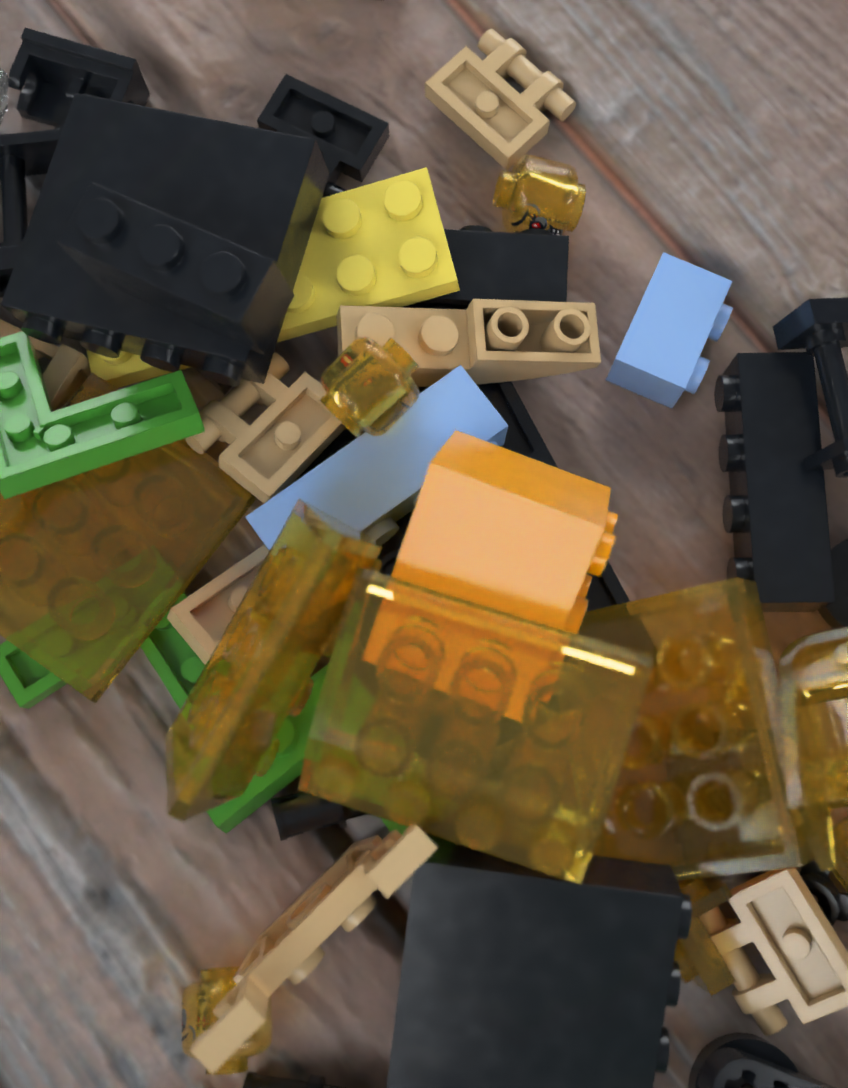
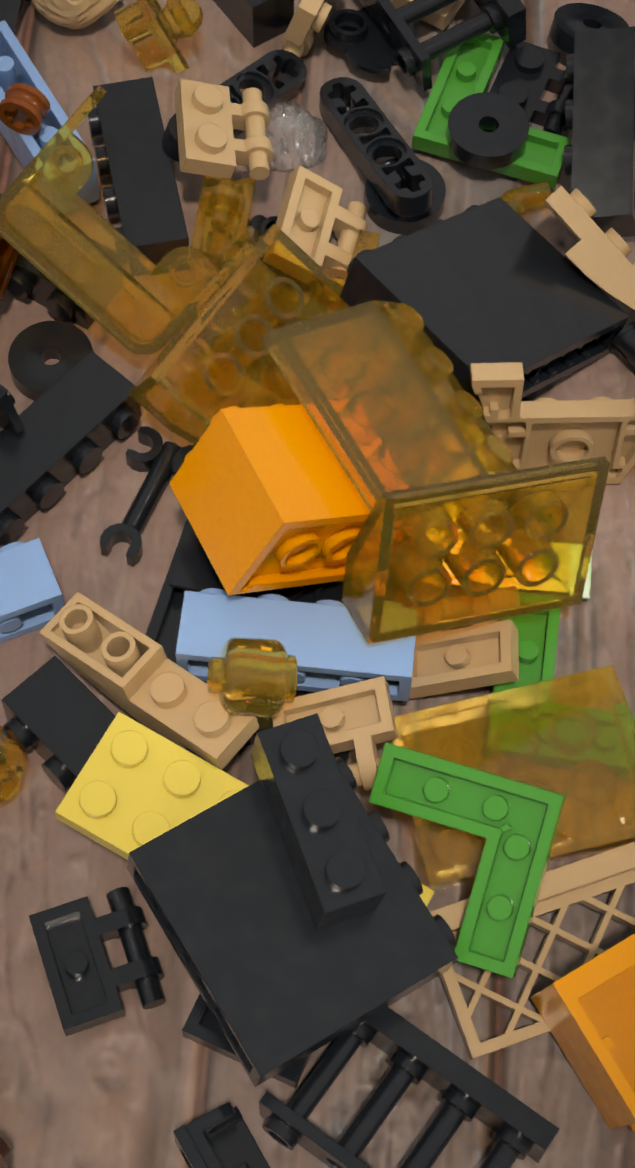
camera: 140 degrees left, 15 degrees down
(666, 574) = (160, 464): none -> black bar

